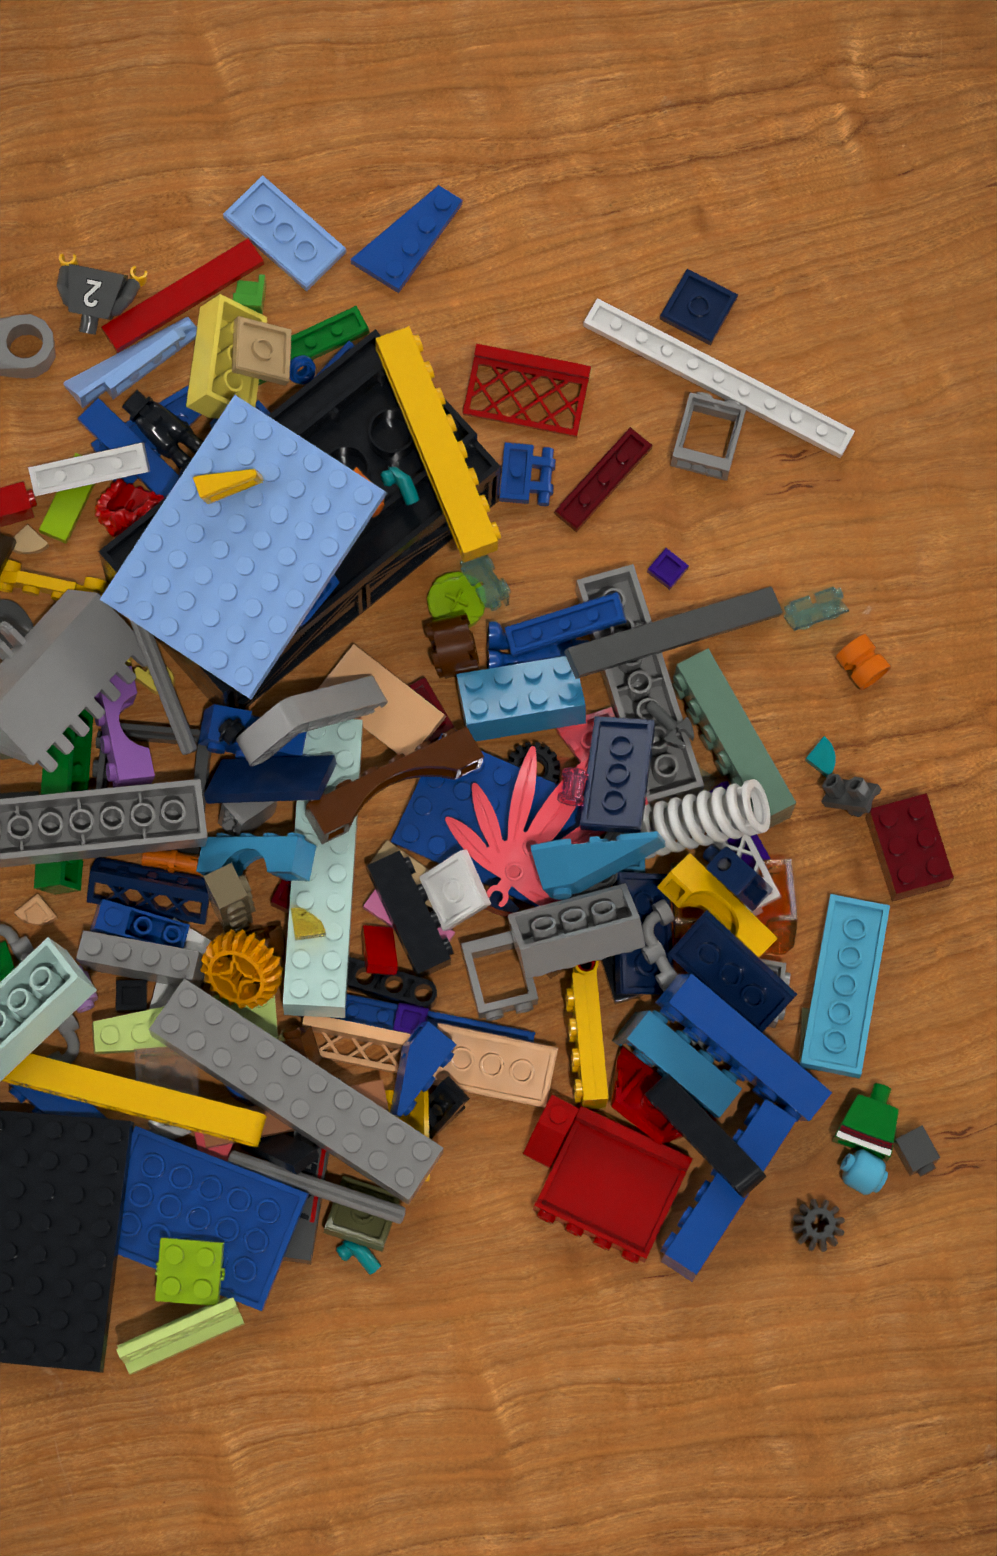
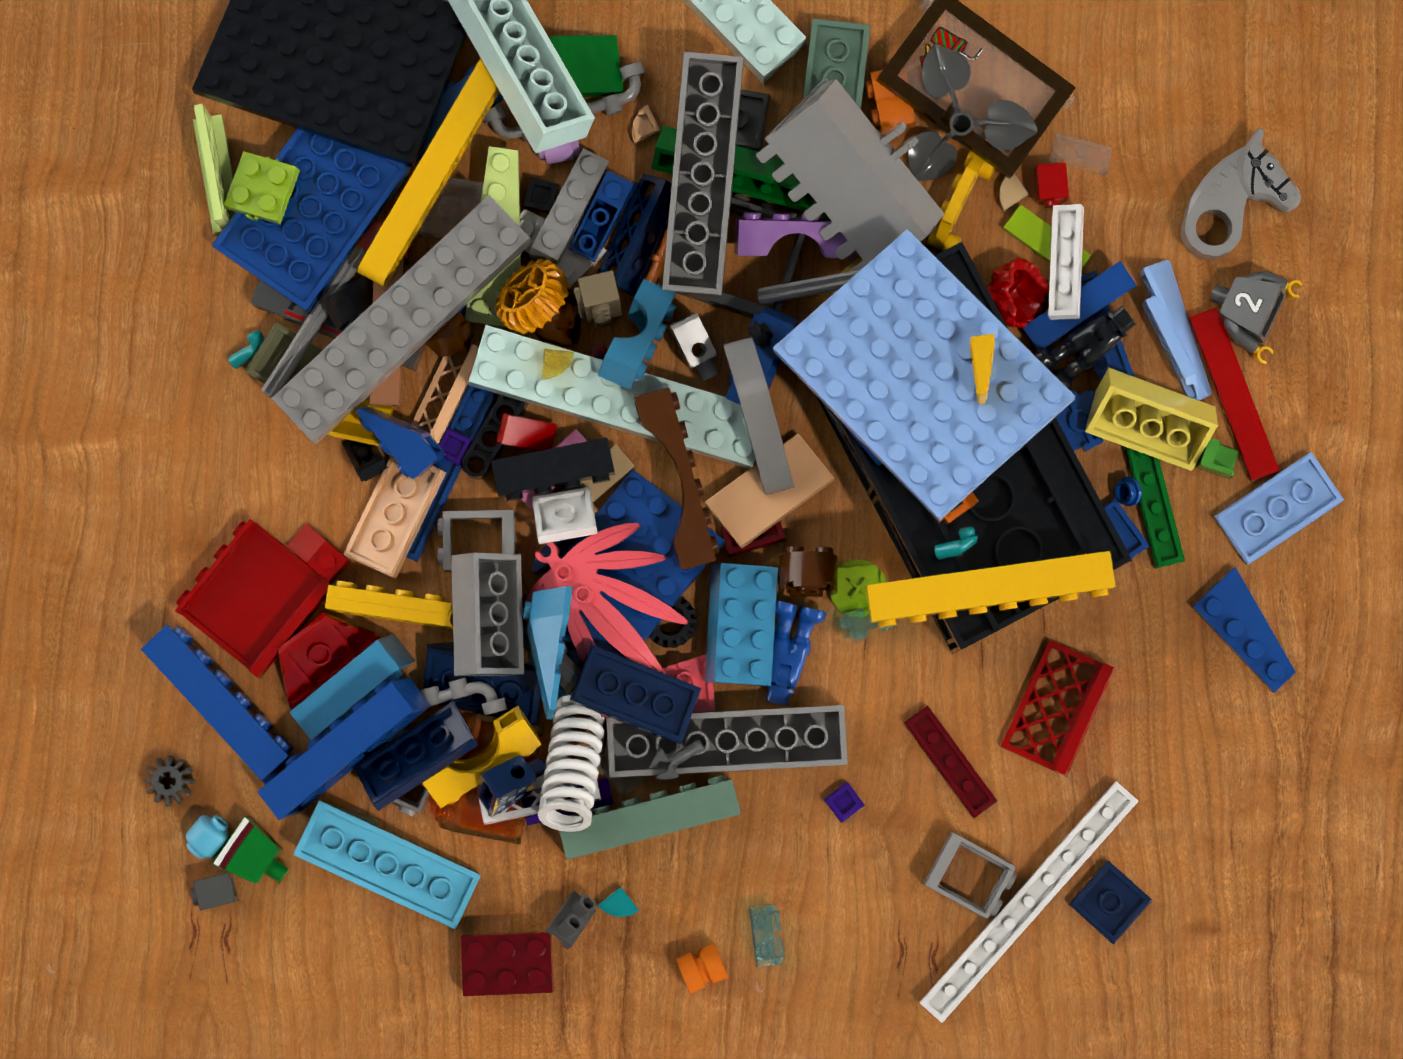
camera: 105 degrees right, 10 degrees up
(261, 350) = (1152, 454): tan tile -> none
(271, 780) = (704, 368): dark blue tile -> none
(516, 474) = (975, 678): blue plate -> none
(565, 624) = (801, 683): blue tile -> none
(573, 786) = (630, 647): clear pink bush -> none
(673, 632) = (769, 786): dark grey tile -> none
(705, 1135) = (266, 689): black beam -> none

